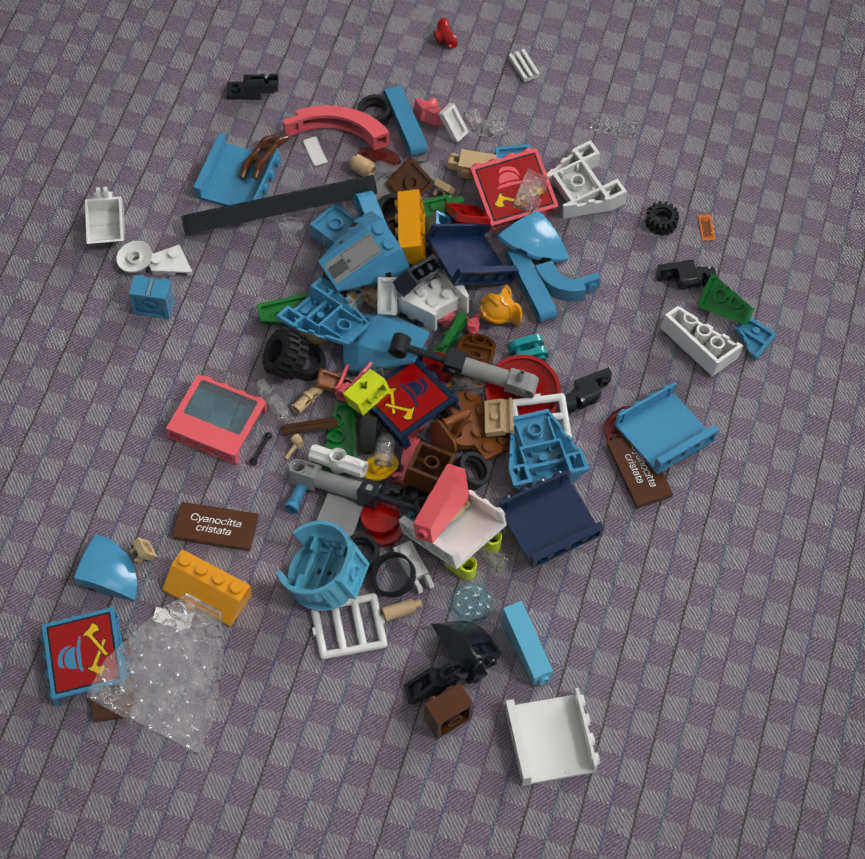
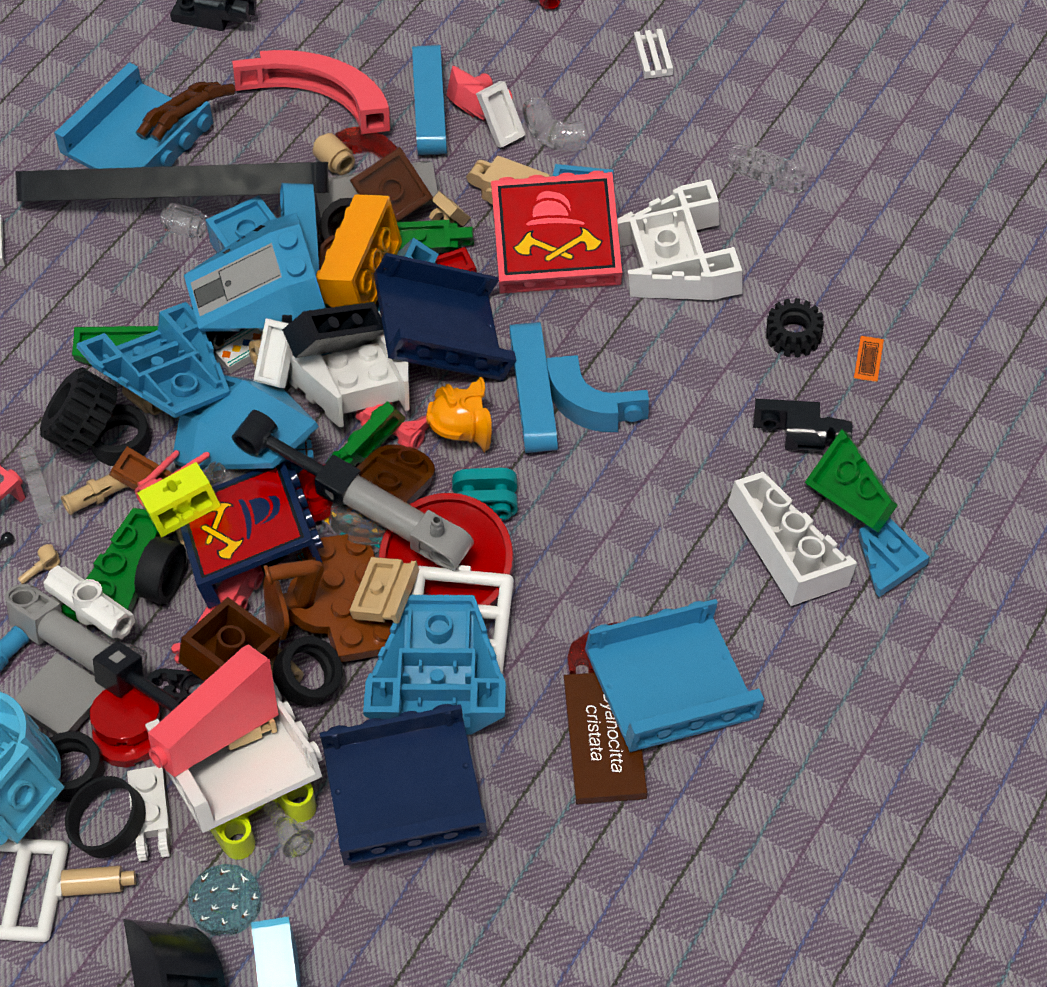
camera: 20 degrees right, 5 degrees down
(309, 426) = (75, 536): reddish brown axle -> none
(315, 151) = (272, 119): white sticker -> none
(378, 473) = (159, 629): yellow dish -> none
(379, 101) = (394, 62): black tyre -> none
(384, 450) = (172, 599): clear cylinder -> none
(467, 213) = (466, 254): red tile -> none
(530, 190) = (576, 237): clear brick -> none
(535, 237) = (564, 314): dark azure brick -> none
(587, 390) = (560, 581): black plate -> none

